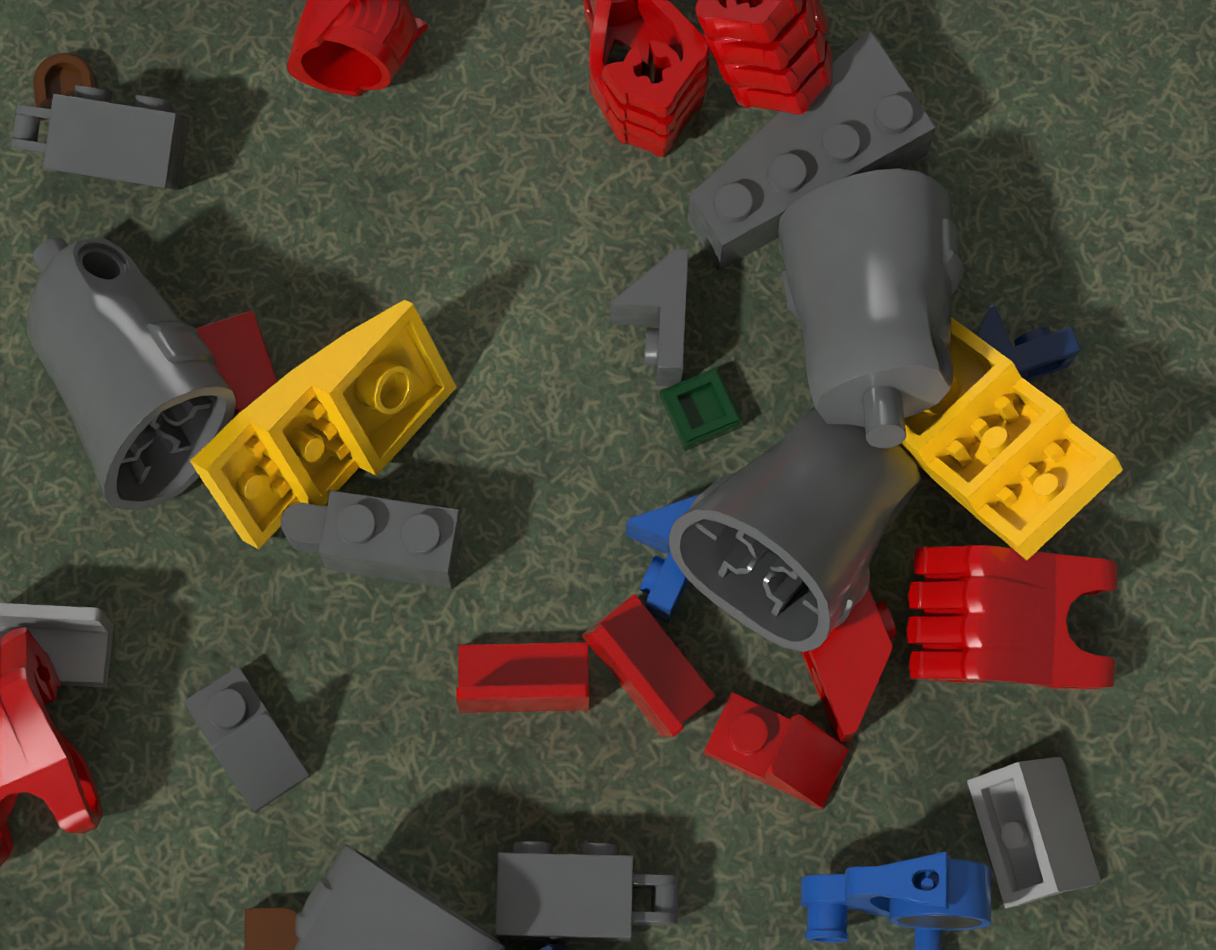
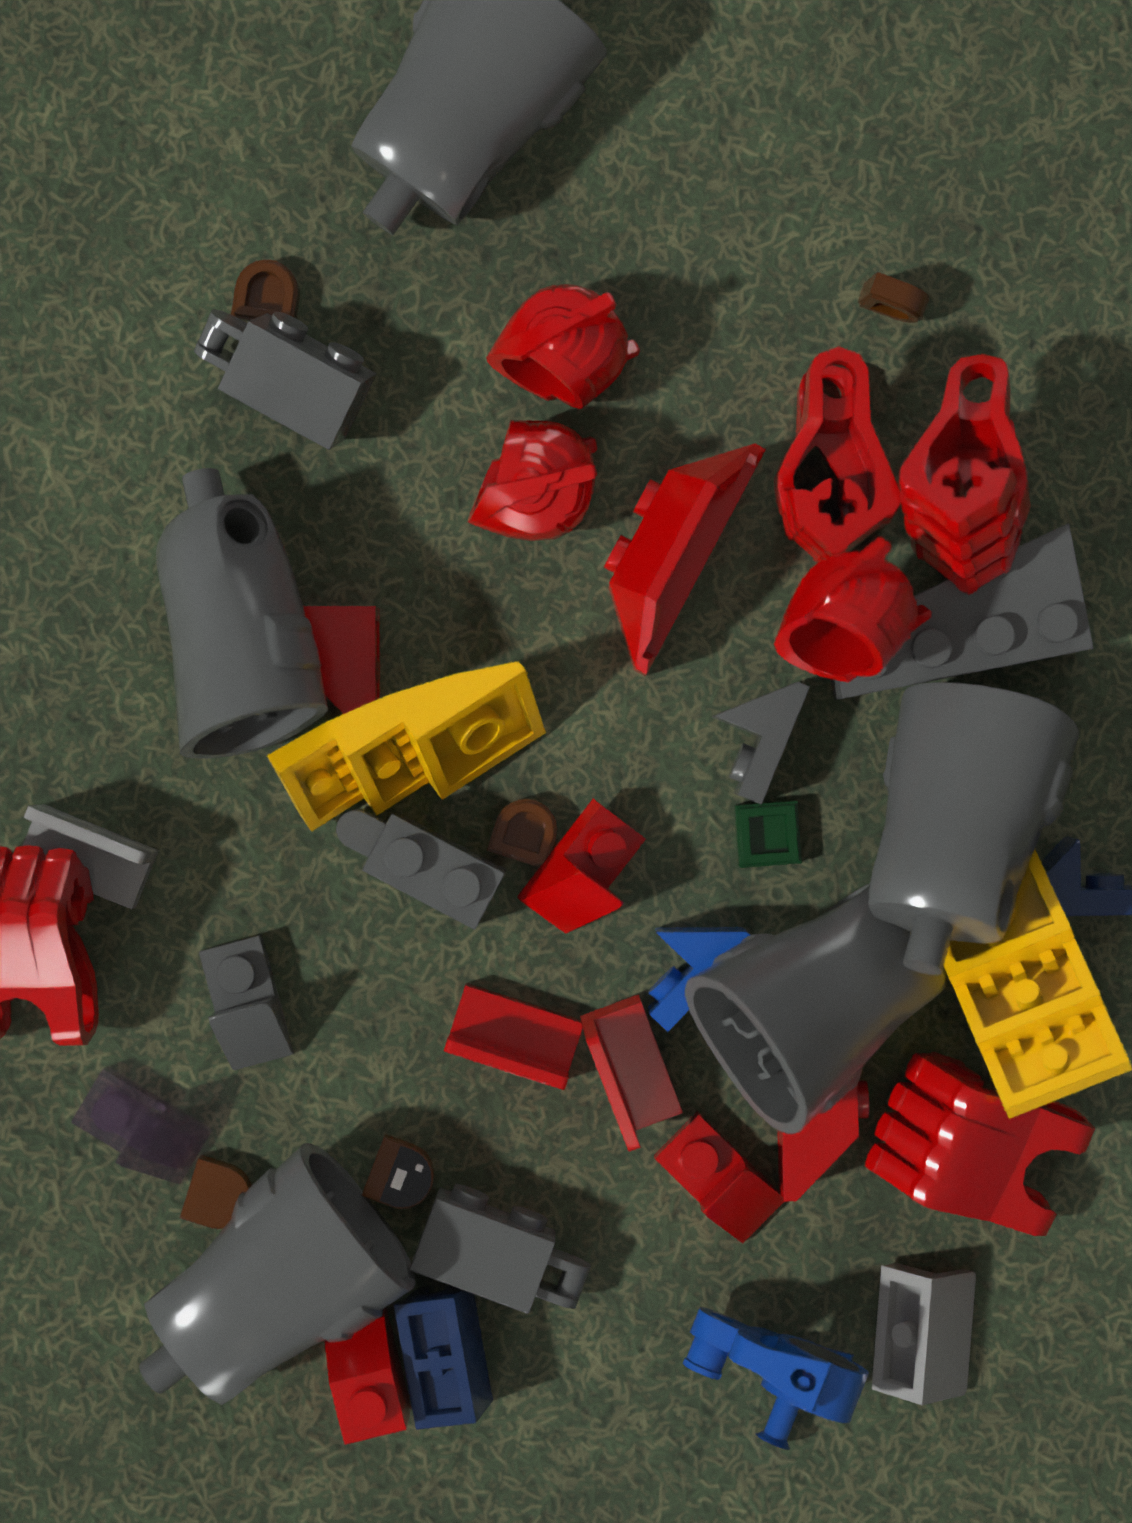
camera: 20 degrees right, 15 degrees up
(178, 898) = (142, 1127): none -> slope
(372, 158) = (538, 483): none -> red helmet
(455, 857) = (399, 1174): none -> tile
(469, 483) = (524, 832): none -> reddish brown tile
(517, 176) = (673, 545): none -> red wedge
(535, 497) = (576, 875): none -> red slope
(698, 155) = (849, 615): none -> red helmet

